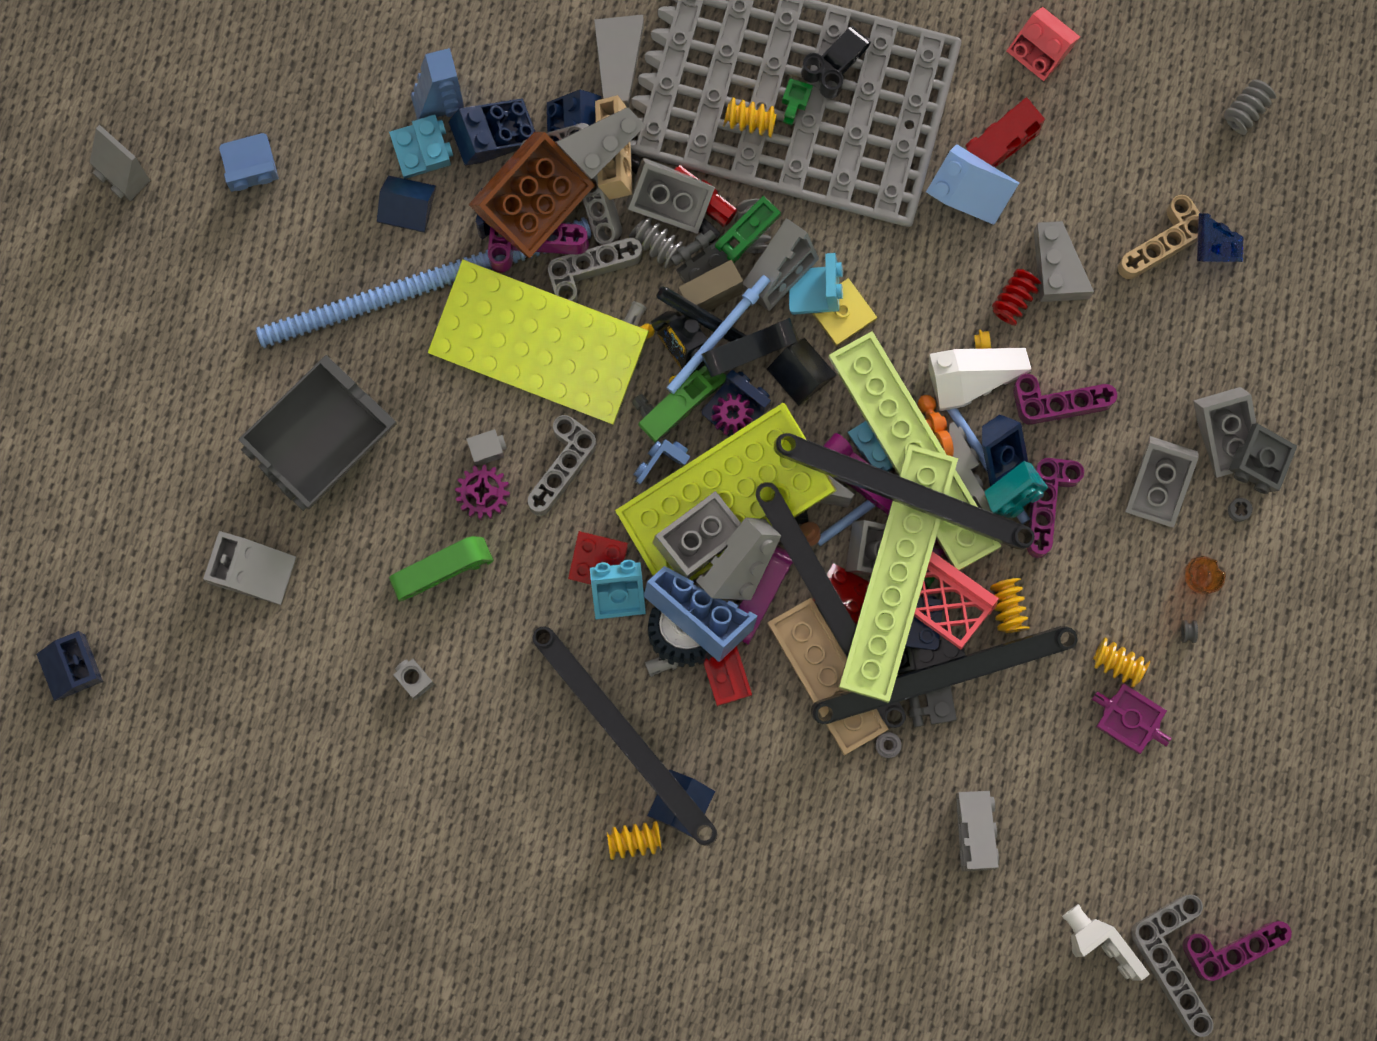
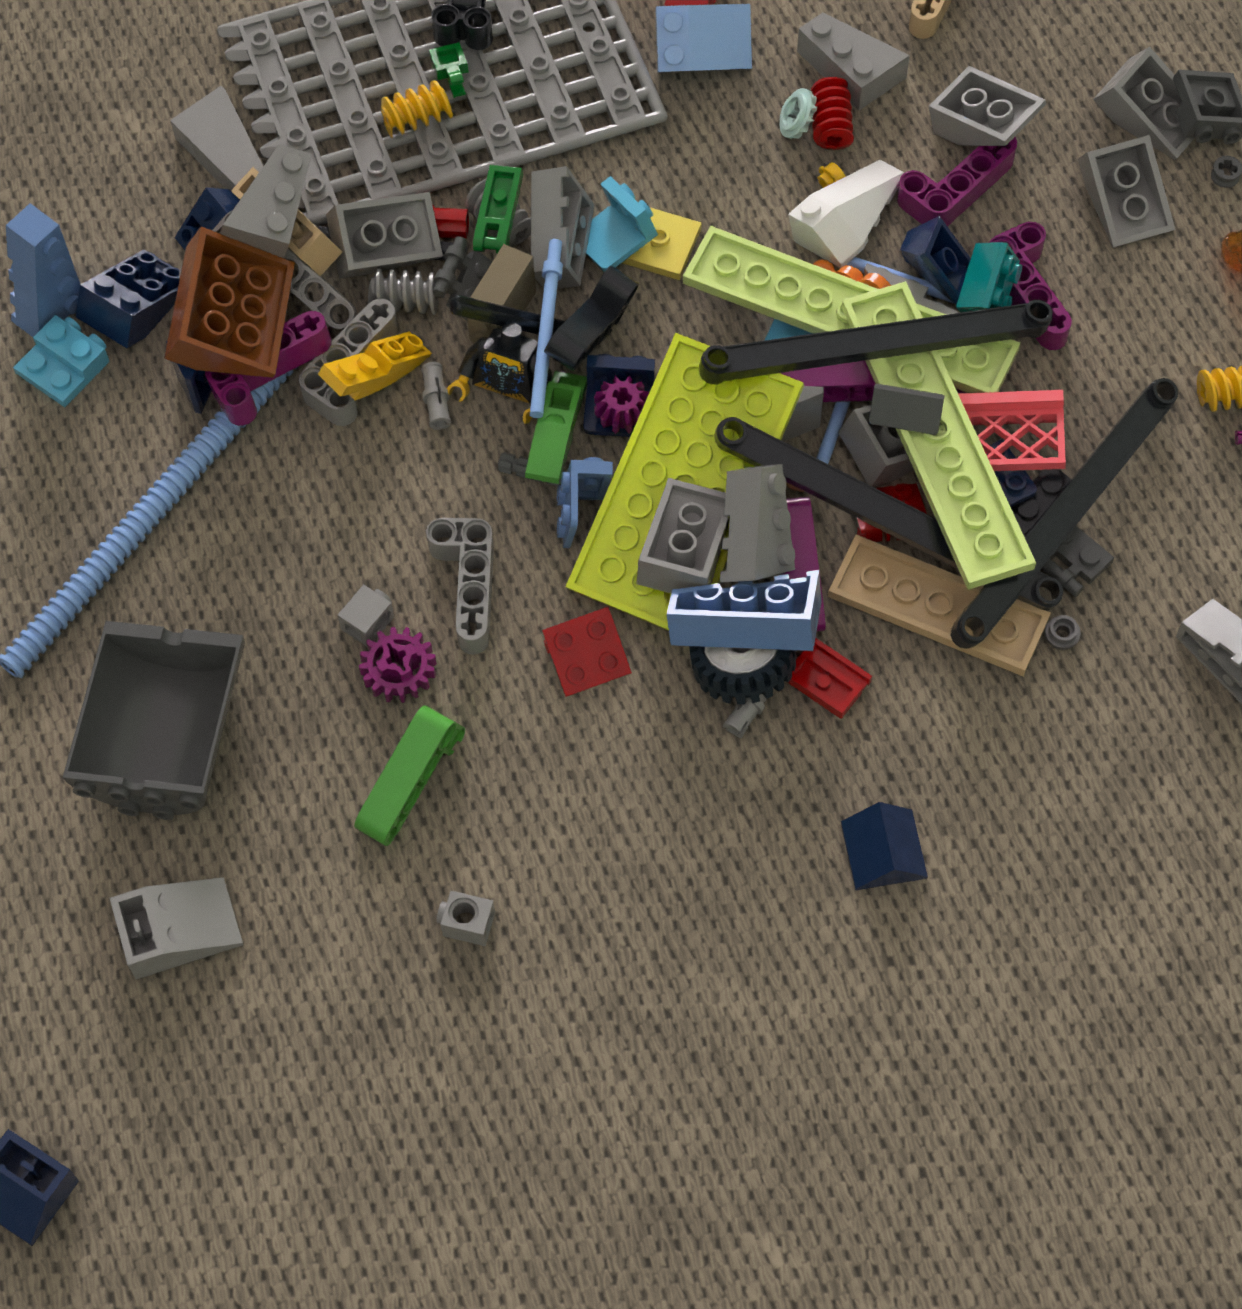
camera: 30 degrees left, 15 degrees down
(405, 203) = (86, 429): dark blue slope -> none
(538, 341) = (344, 469): neon yellow plate -> none
(601, 286) = (375, 368): none -> yellow slope
(617, 589) = (634, 662): medium azure plate -> none
(624, 735) = (766, 810): black piece -> none
(634, 840) = (863, 919): yellow piece -> none
(801, 371) = (655, 319): black slope -> none
(886, 549) = (906, 409): none -> dark grey slope
(999, 275) = (797, 113): none -> light aqua gear
(1009, 606) = (1079, 411): yellow piece -> none
(1110, 365) = (982, 110): none -> light grey slope

